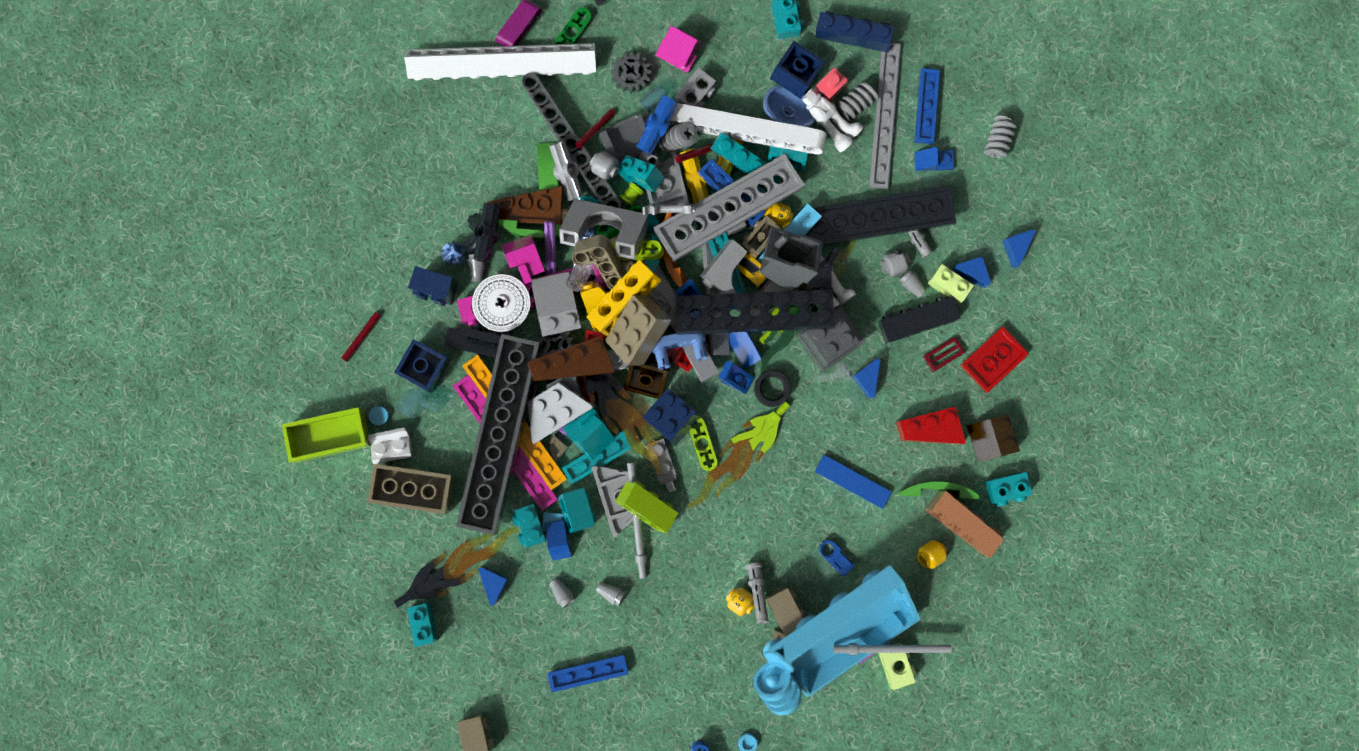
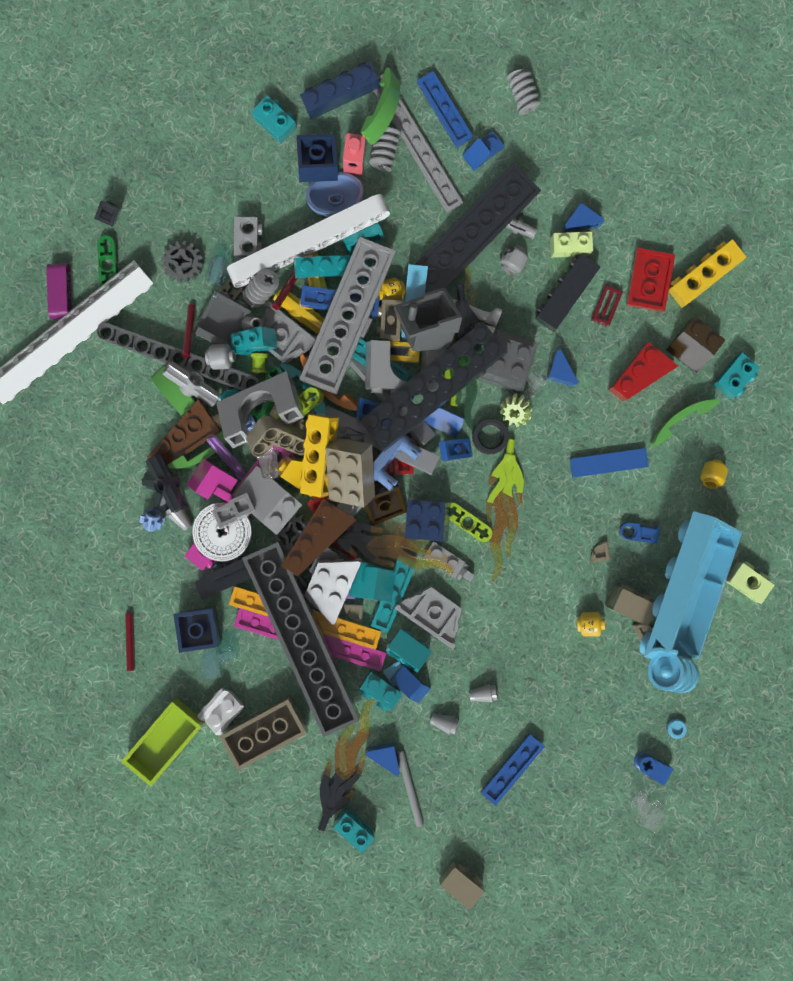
camera: 30 degrees left, 5 degrees up
(379, 416) = (193, 693): medium azure tile -> none
(432, 285) = (150, 561): dark blue brick -> none
(492, 626) = (410, 789): none -> light grey bar
(523, 293) = (233, 511): none -> light grey slope
(640, 557) = (485, 647): light grey bar -> none
(647, 506) = (462, 606): lime brick -> none
(657, 124) = (237, 290): blue piece -> none
(661, 208) = (289, 361): light grey bar -> none
(679, 48) = (206, 212): dark pink plate -> none
(757, 582) = (593, 600): light grey pin -> none
(792, 550) = (600, 552): none -> dark tan tile
(802, 378) = (518, 416): none -> yellowish green gear
(822, 110) = (363, 177): white piece -> none
(854, 649) = (708, 595): light grey bar -> none
(865, 77) = (378, 123): none -> bright green slope
(912, 283) = (539, 266): light grey cone -> none
(964, 523) = (721, 430): nougat wedge -> none
(1017, 246) = (603, 173): blue slope -> none
(1074, 387) = (731, 255): none -> yellow brick

